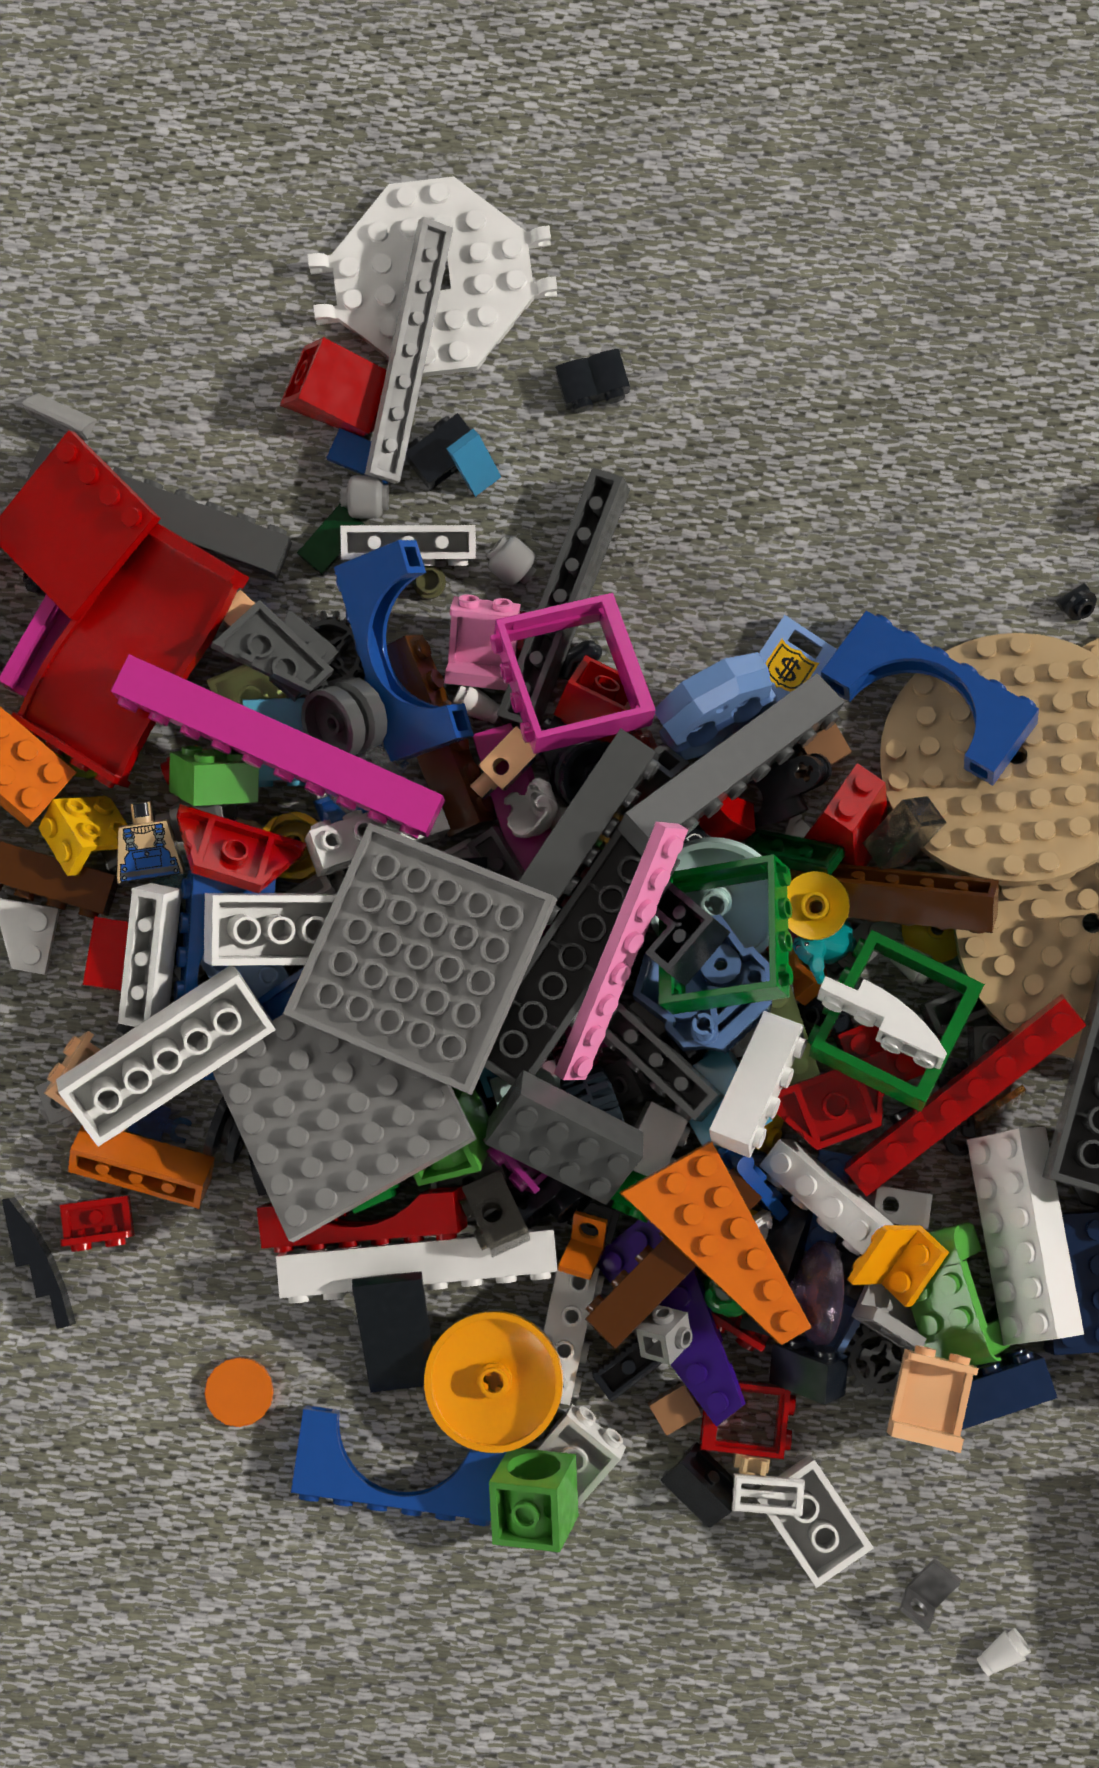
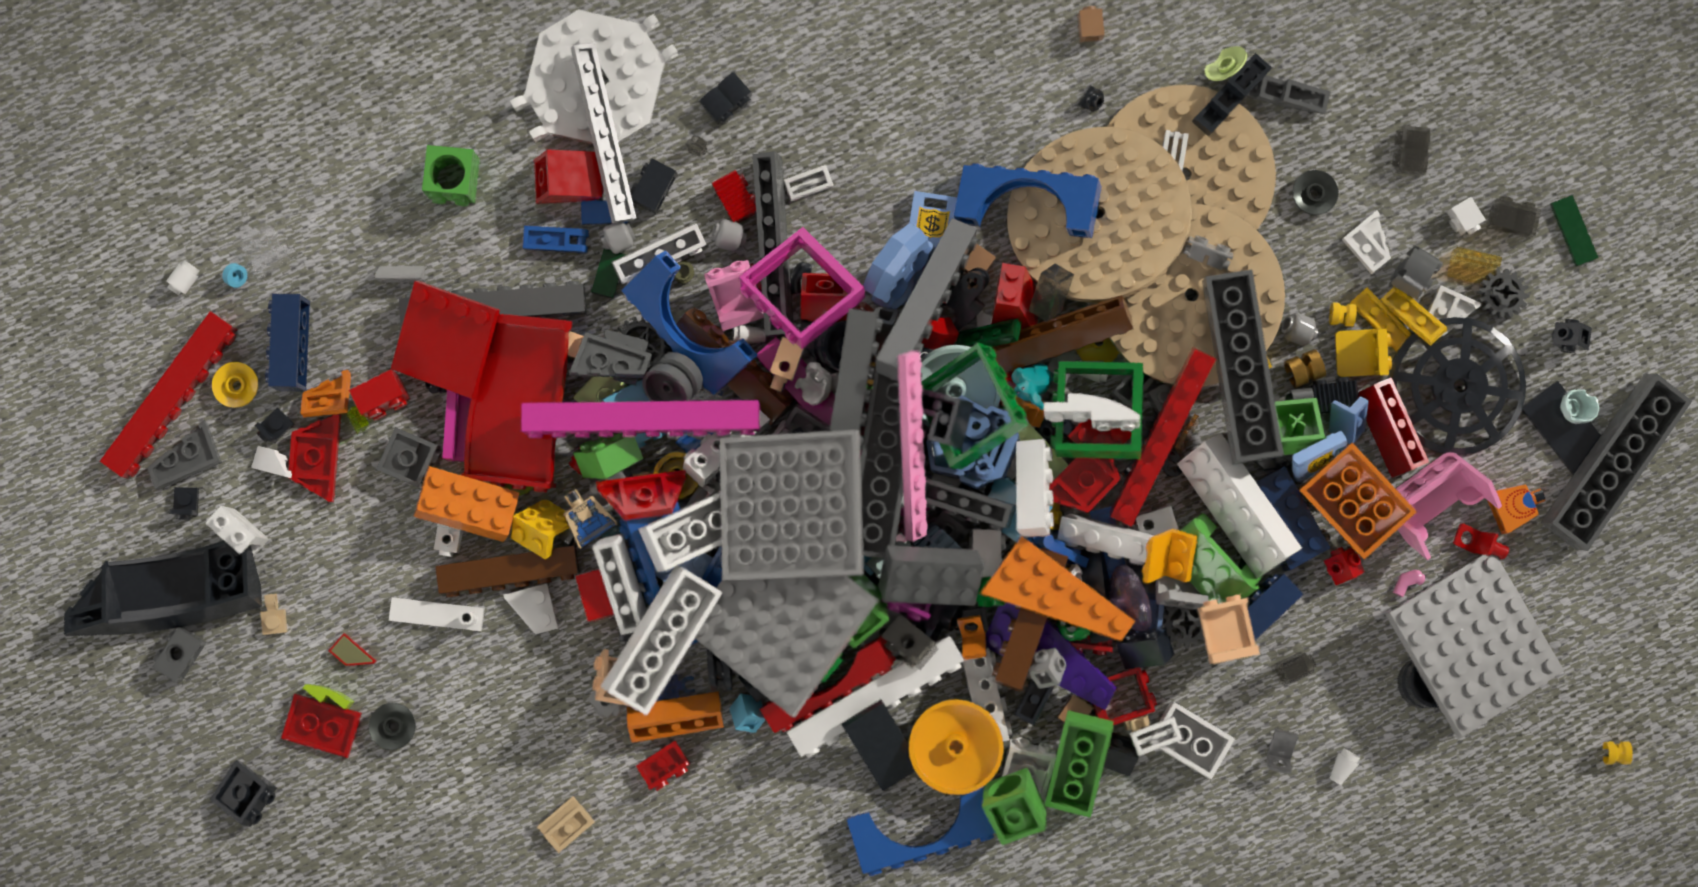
camera: 25 degrees left, 0 degrees up
(31, 1249) = (631, 802): black slope -> none
(180, 286) = (438, 158): none -> bright green brick
(238, 1204) = (747, 713): none -> medium azure panel
(239, 1391) = (801, 829): orange tile -> none
(281, 462) = (555, 239): none -> blue plate
(474, 462) = (676, 184): dark azure tile -> none
(525, 425) = (697, 146): none -> clear smoke plate
(543, 514) = (735, 197): none -> red brick
(648, 1482) = (1079, 763): none -> bright green brick
(649, 554) = (790, 190): none -> white tile
(811, 888) = (1023, 350): yellow dish -> none
(999, 1490) = (1295, 668): none -> clear smoke brick

